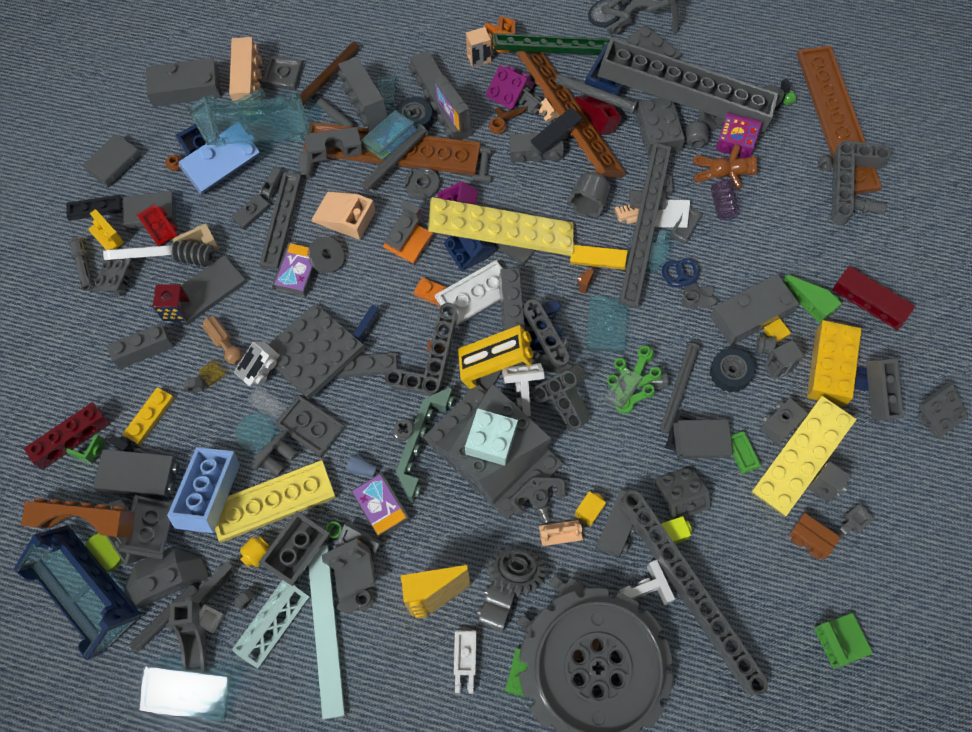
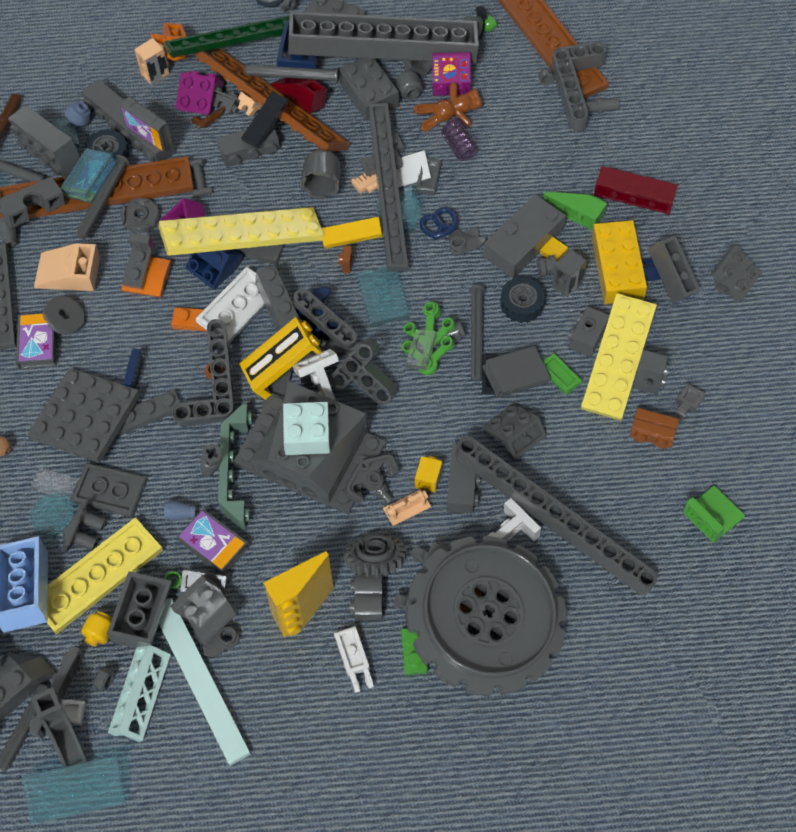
camera: 20 degrees left, 5 degrees down
(257, 364) = (30, 444): brick -> none
(400, 76) = (78, 114): none -> sand blue cone
(497, 121) = (199, 135): dark orange plate -> none
(678, 529) = (523, 463): neon yellow brick -> none

